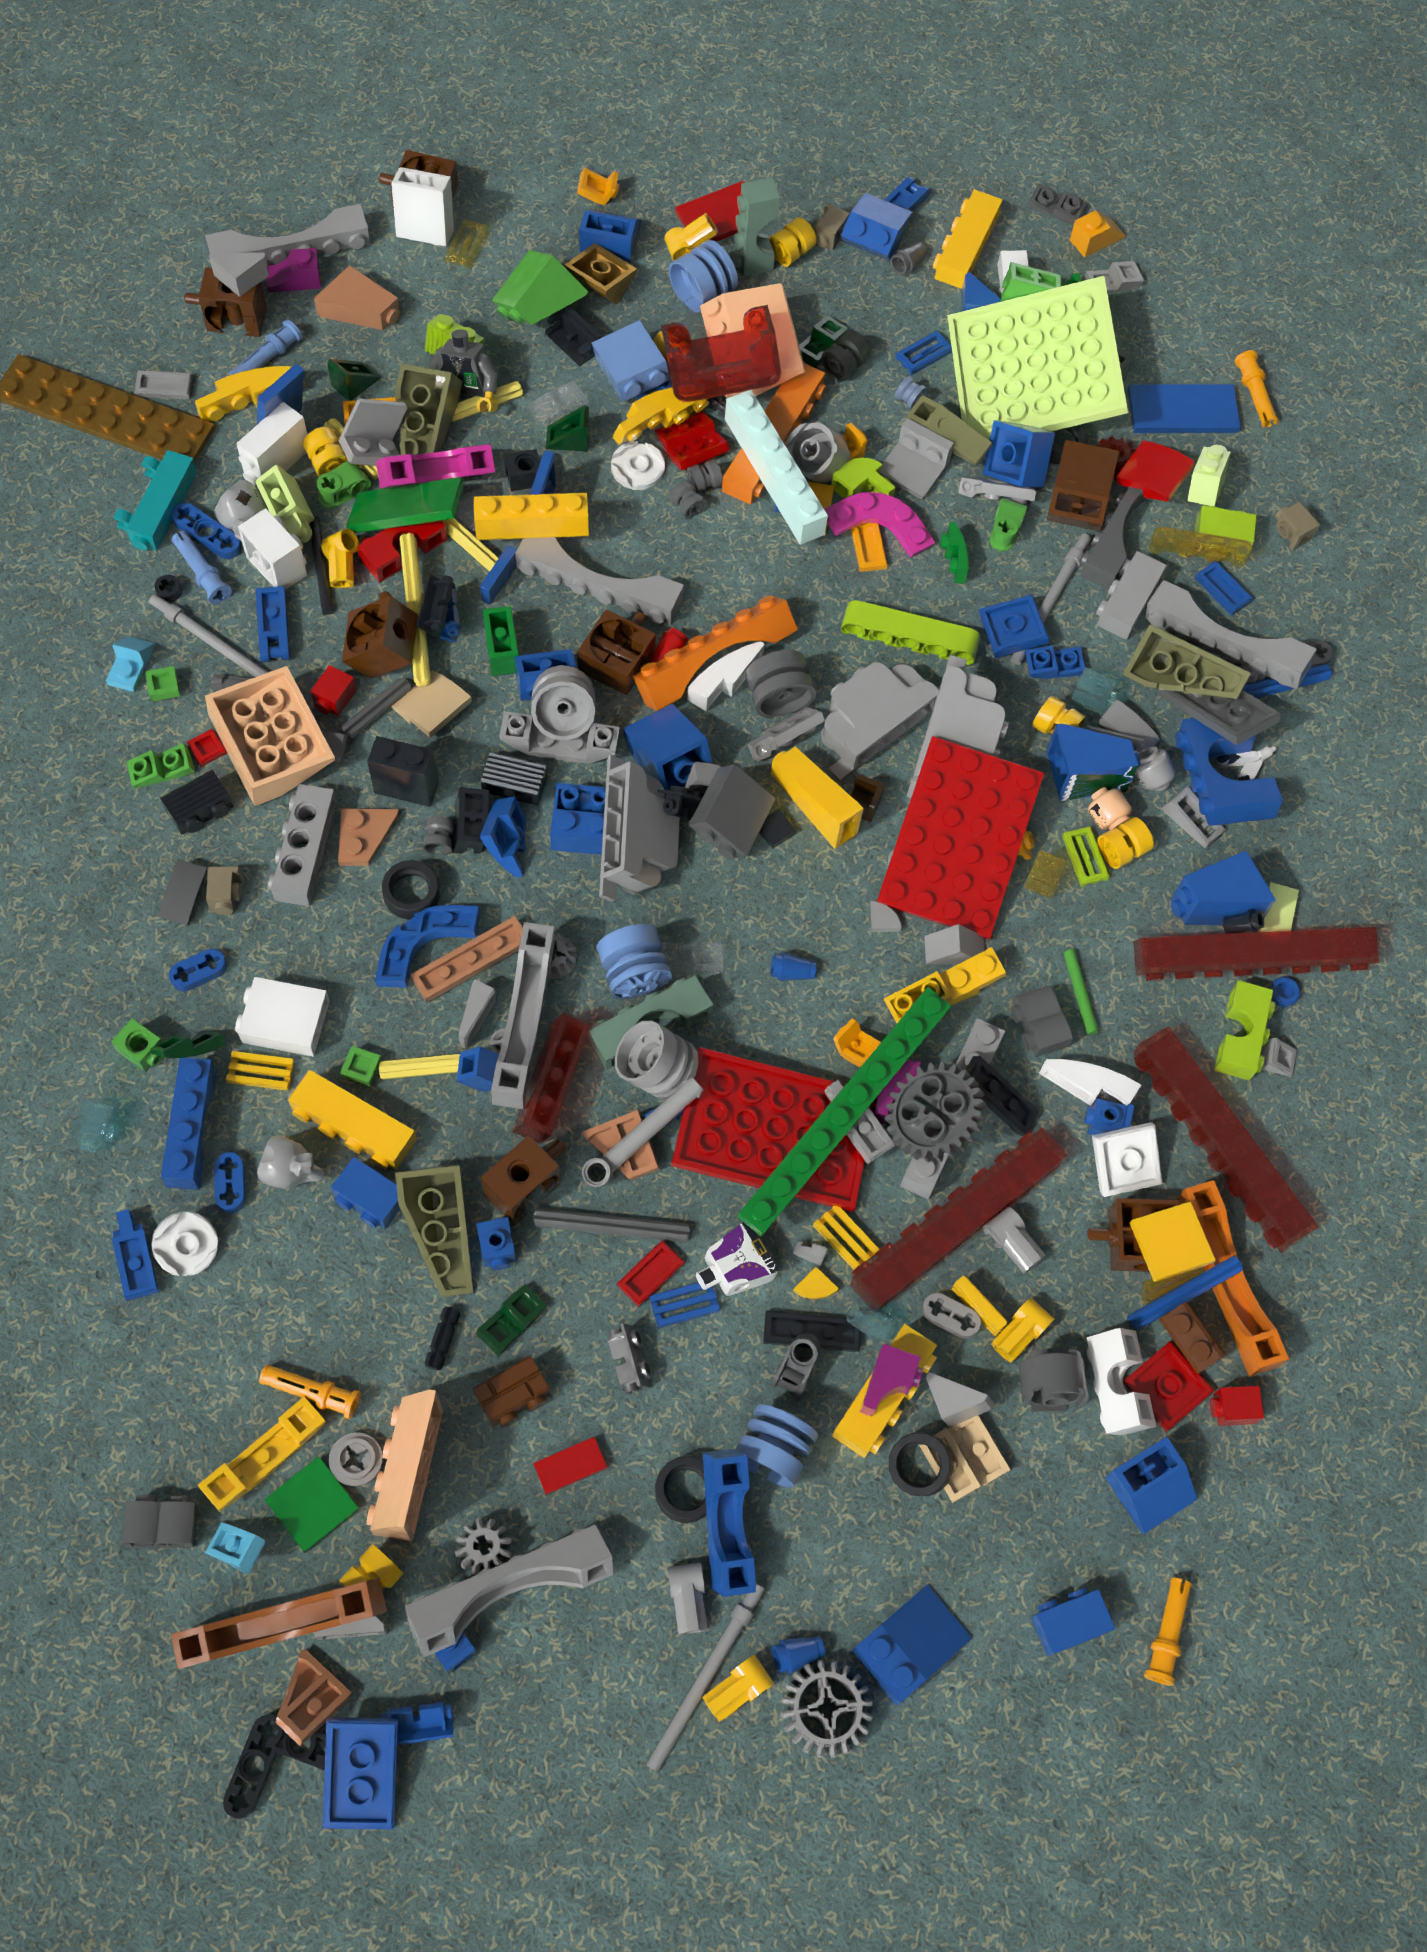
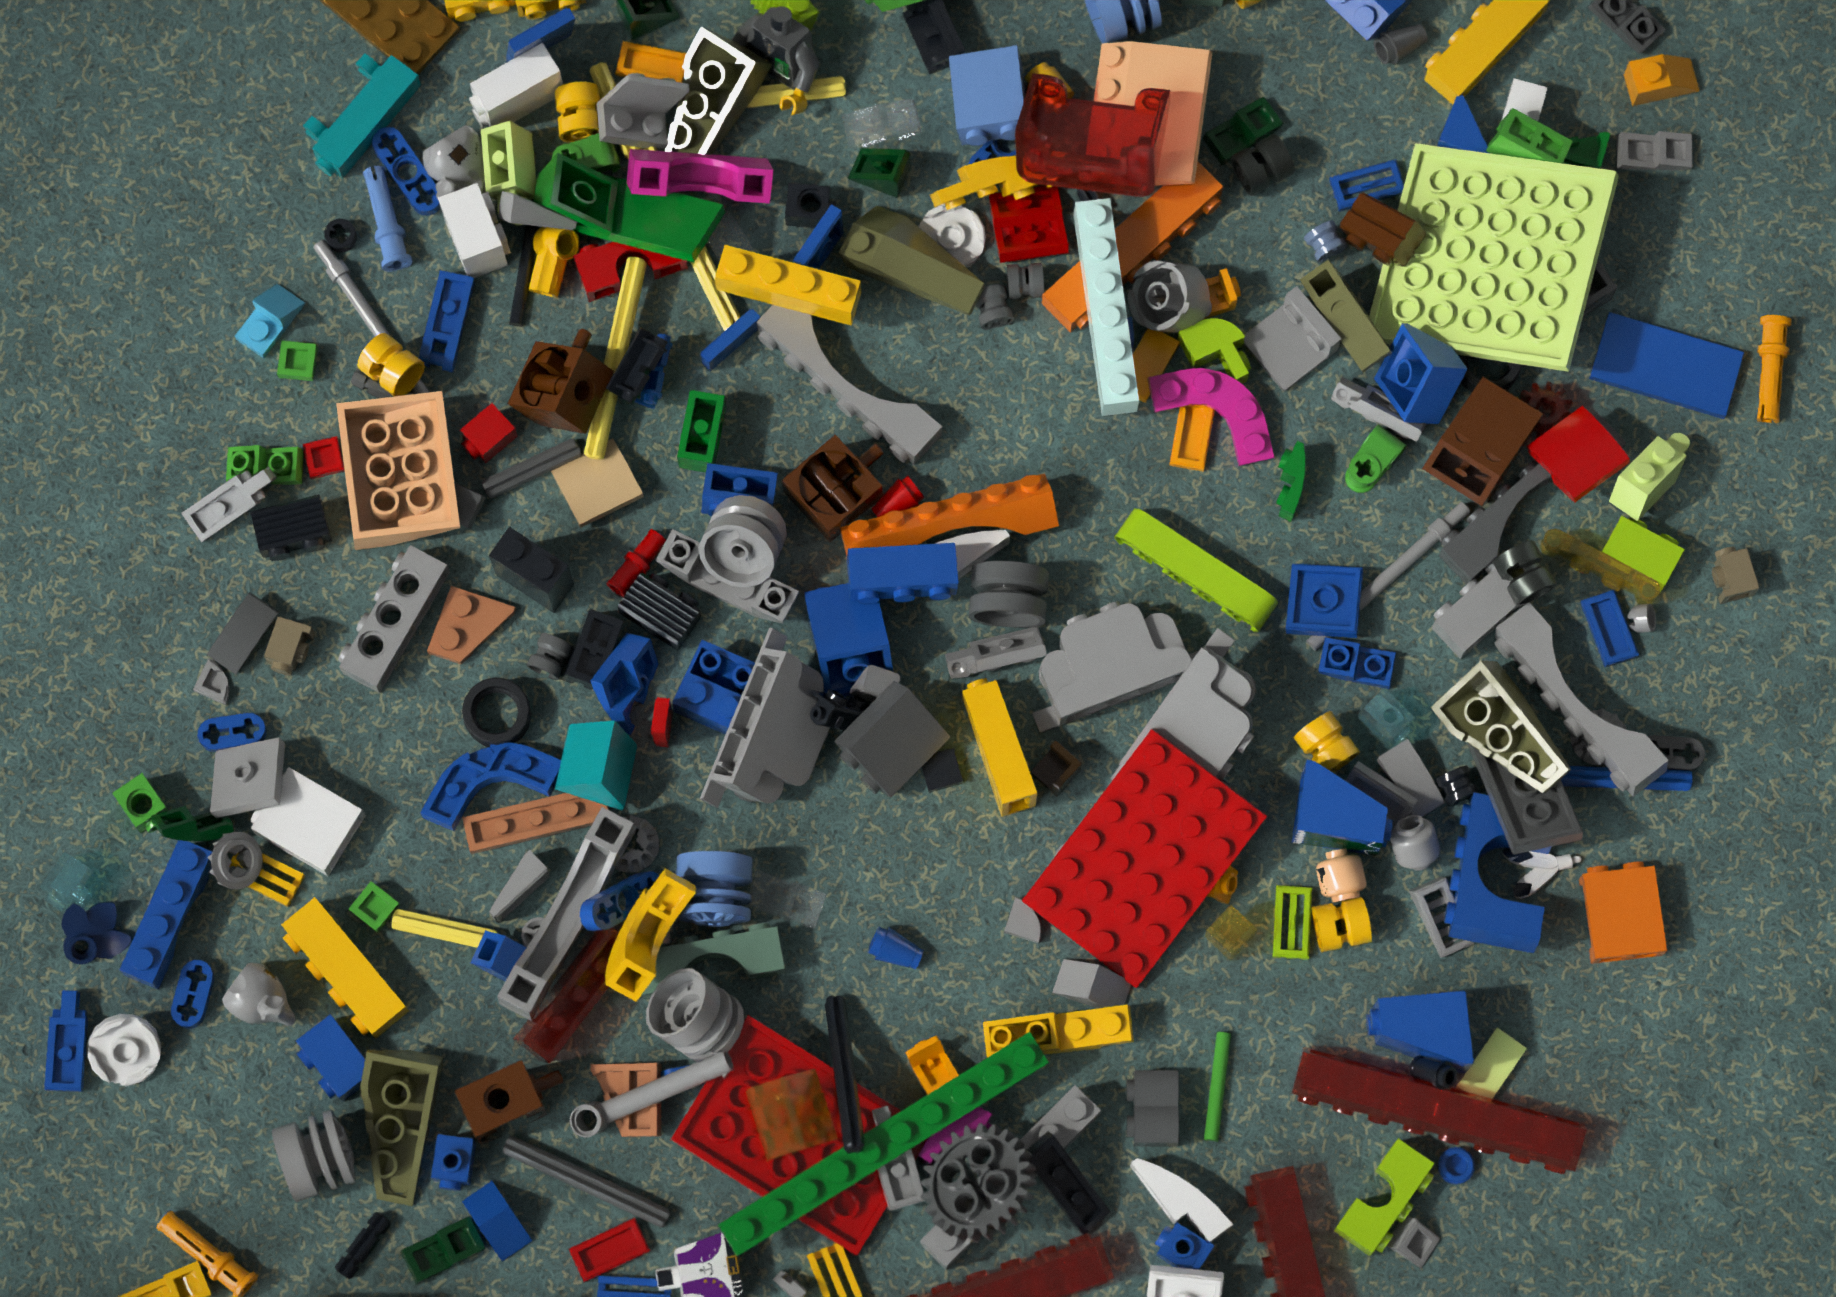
camera: 25 degrees right, 10 degrees up
(128, 1154) = (95, 928): none -> dark blue plate
(139, 798) = (227, 503): none -> light grey hinge
(169, 938) = (213, 683): none -> light grey tile
(222, 996) = (247, 777): none -> light grey plate
(238, 660) = (387, 362): none -> yellow wheel
(243, 1058) = (249, 857): none -> light grey gear
(313, 520) = (523, 211): none -> light grey slope
(344, 502) = (577, 193): none -> green slope
(377, 1273) = (314, 1155): none -> light grey wheel
(481, 750) = (636, 562): none -> red pin
(504, 898) = (597, 763): none -> teal slope
(547, 852) = (662, 722): none -> red tile
(549, 1280) = (497, 1221): none -> blue slope
(555, 994) = (609, 900): none -> blue beam
(591, 1007) = (637, 945): none -> yellow arch
(617, 484) = (906, 257): none -> olive wedge
(695, 686) = (902, 572): none -> blue brick
(761, 1110) = (791, 1114): none -> clear yellow slope
(794, 1068) = (844, 1074): none -> black axle
(950, 370) = (1381, 230): none -> reddish brown brick
(1162, 562) = (1527, 585): none -> pearl dark grey wheel
(1165, 722) = (1457, 785): none -> black wheel
(1246, 573) = (1643, 617): none -> light grey hinge
(1327, 772) = (1623, 913): none -> orange panel

